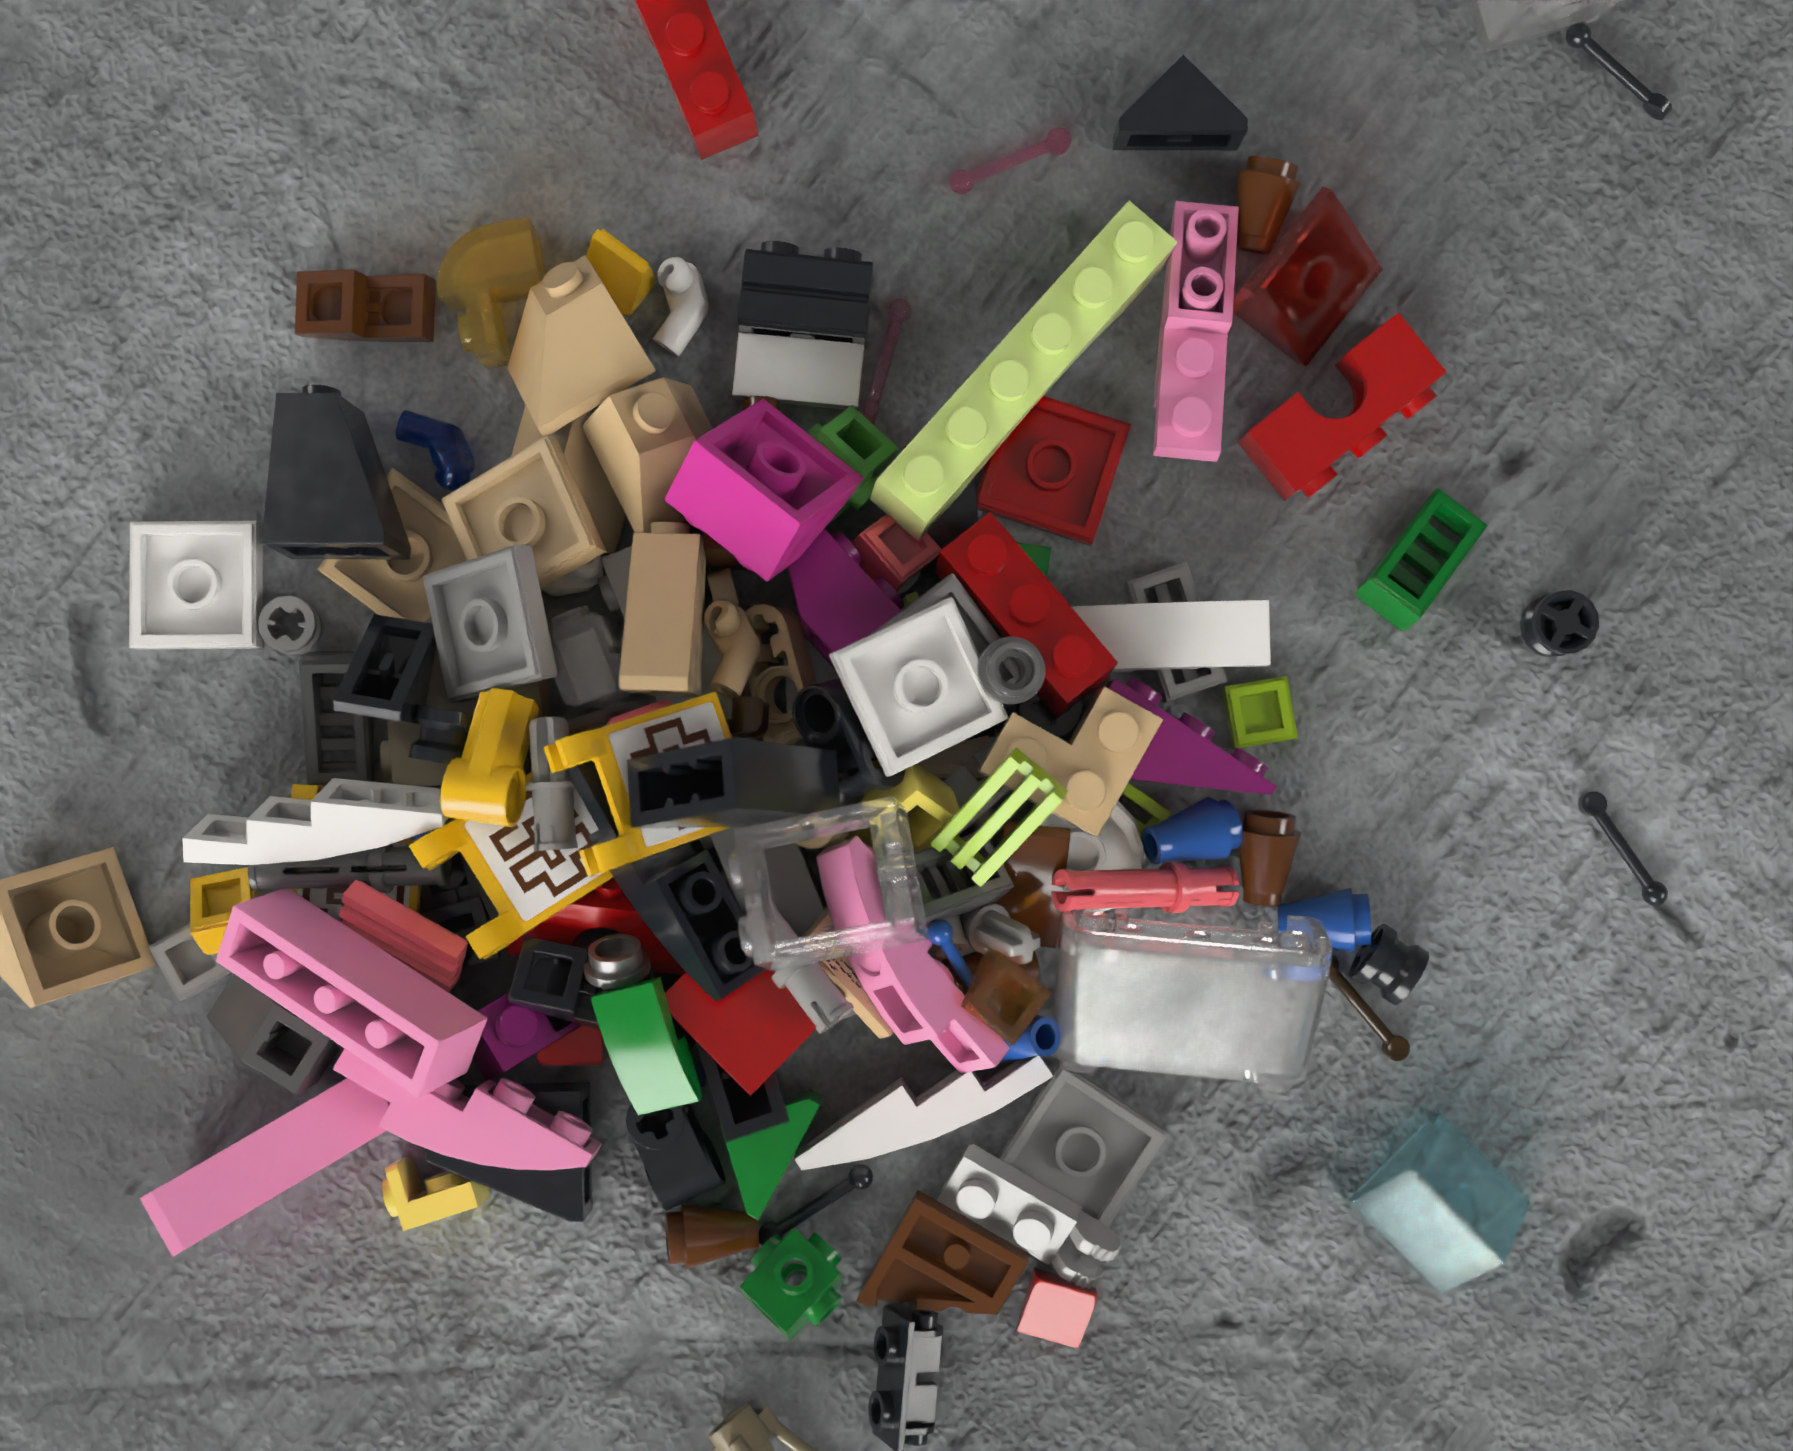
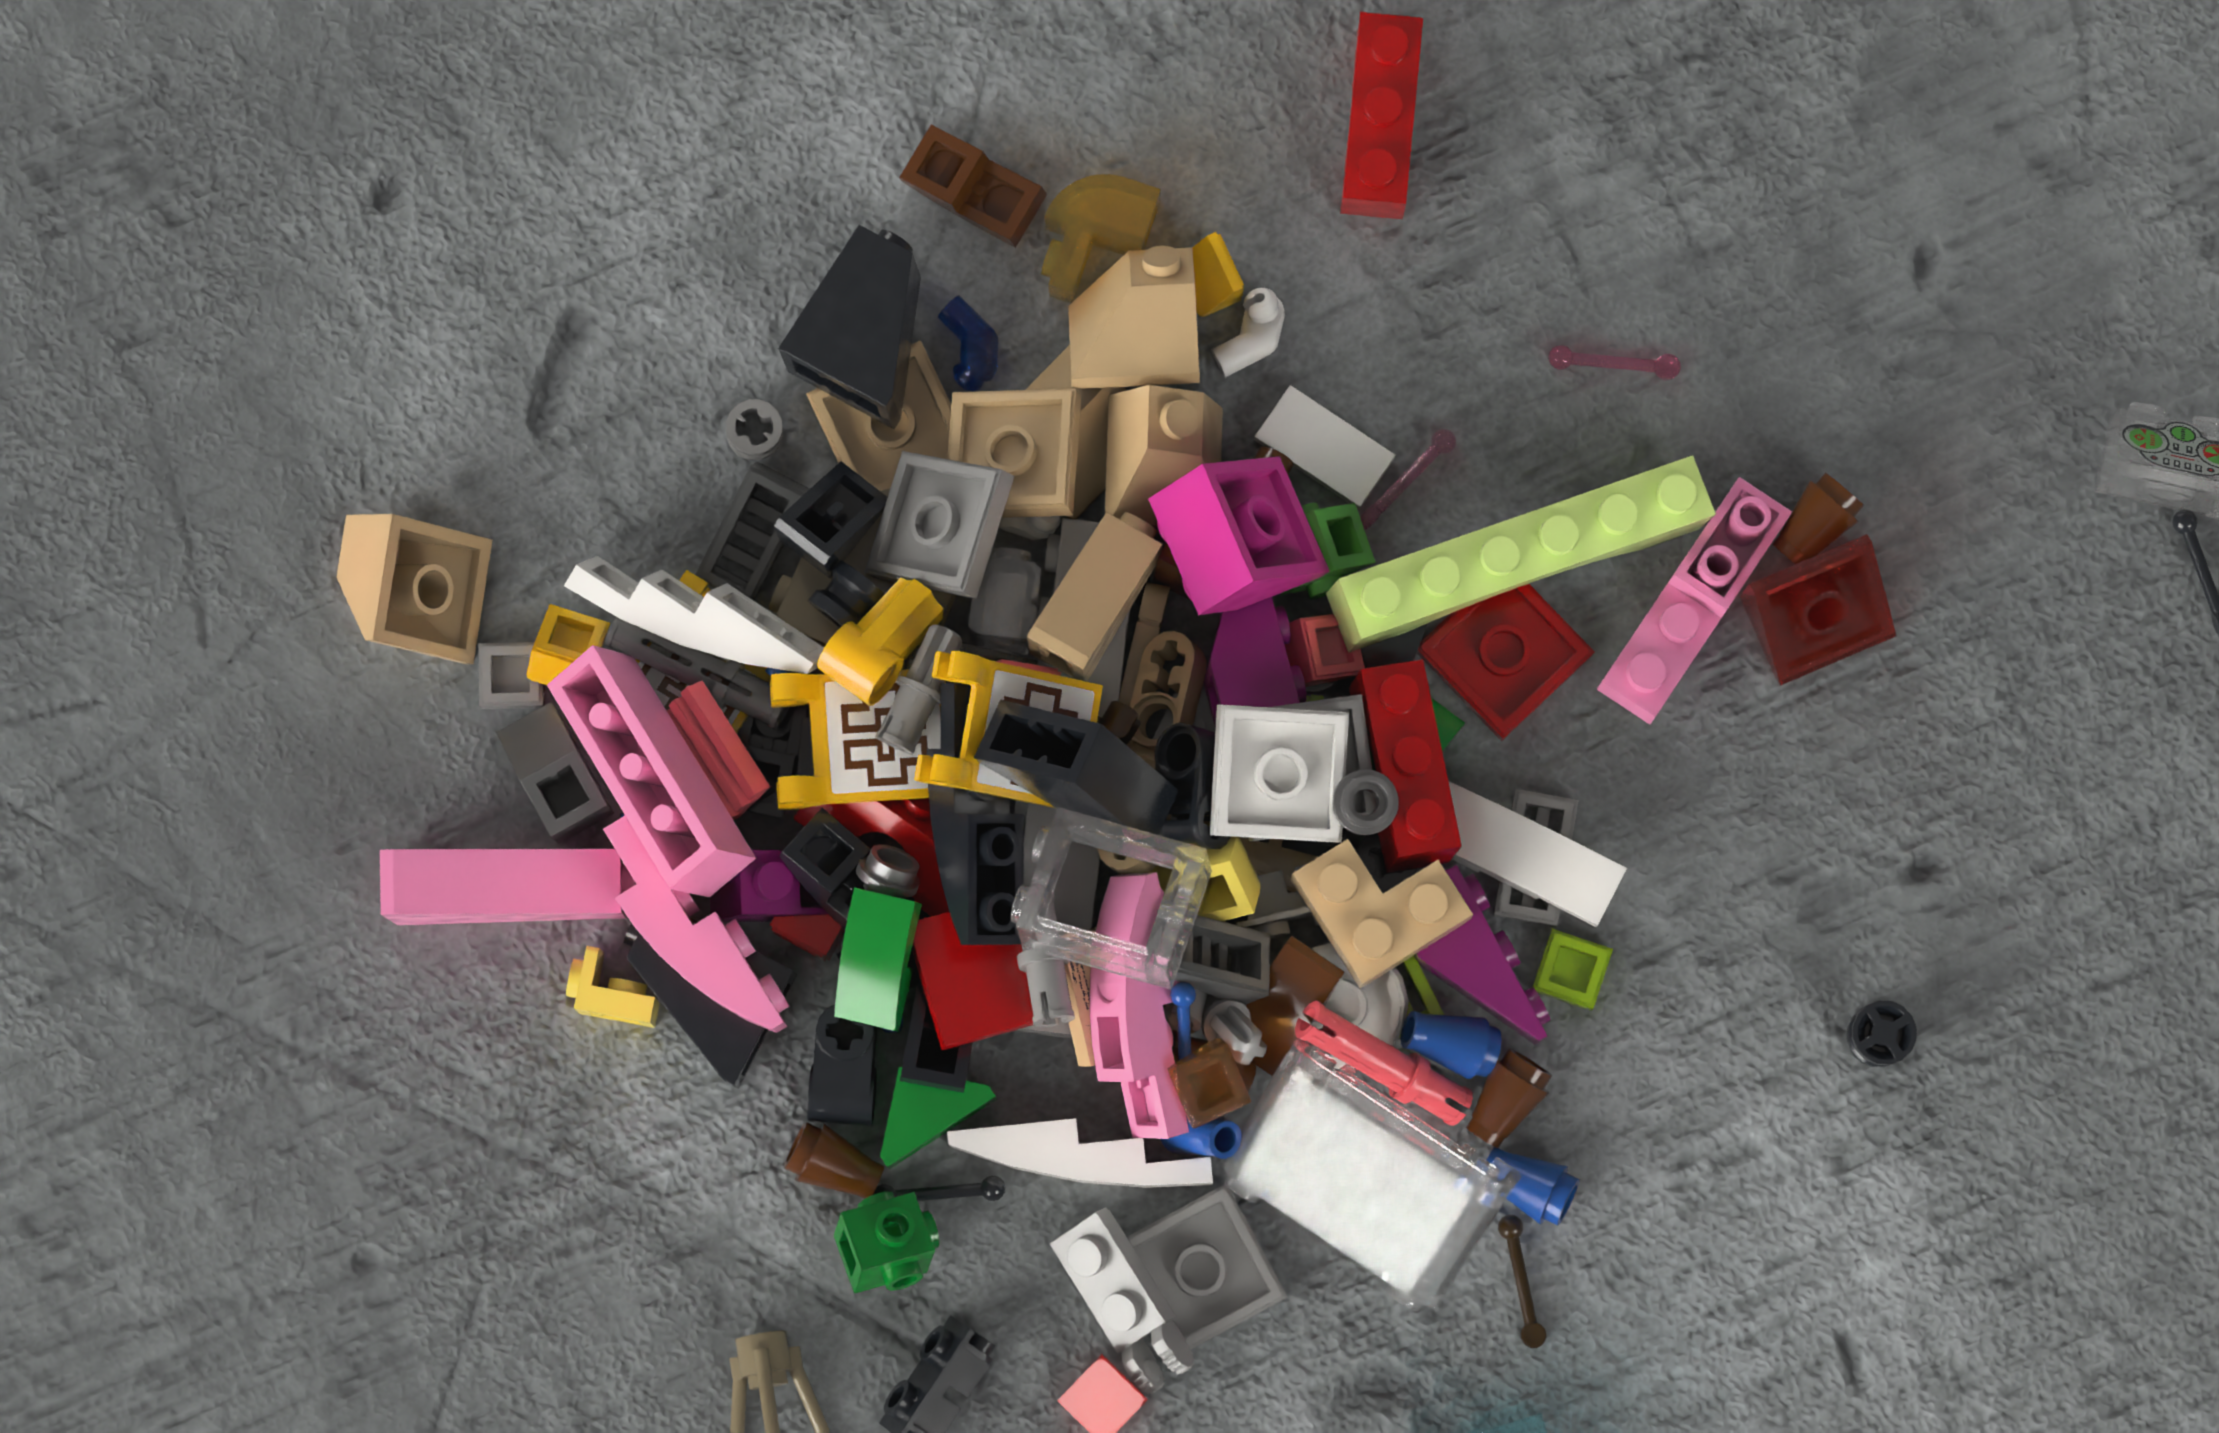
camera: 30 degrees right, 5 degrees down
(195, 584) = (691, 349): white tile -> none
(736, 644) = (1140, 656): tan arm -> none
(806, 293) = (1367, 384): black brick -> none
(943, 1262) = (1026, 1300): reddish brown wing -> none
(967, 852) = (1242, 939): lime tile -> none
(1181, 114) = (1784, 401): black slope -> none
(1386, 374) = (1846, 736): red arch -> none
(1389, 964) = (1564, 1252): black wheel -> none
(1397, 592) = (1743, 933): green slope -> none
(1594, 805) = (1828, 1215): black hinge -> none

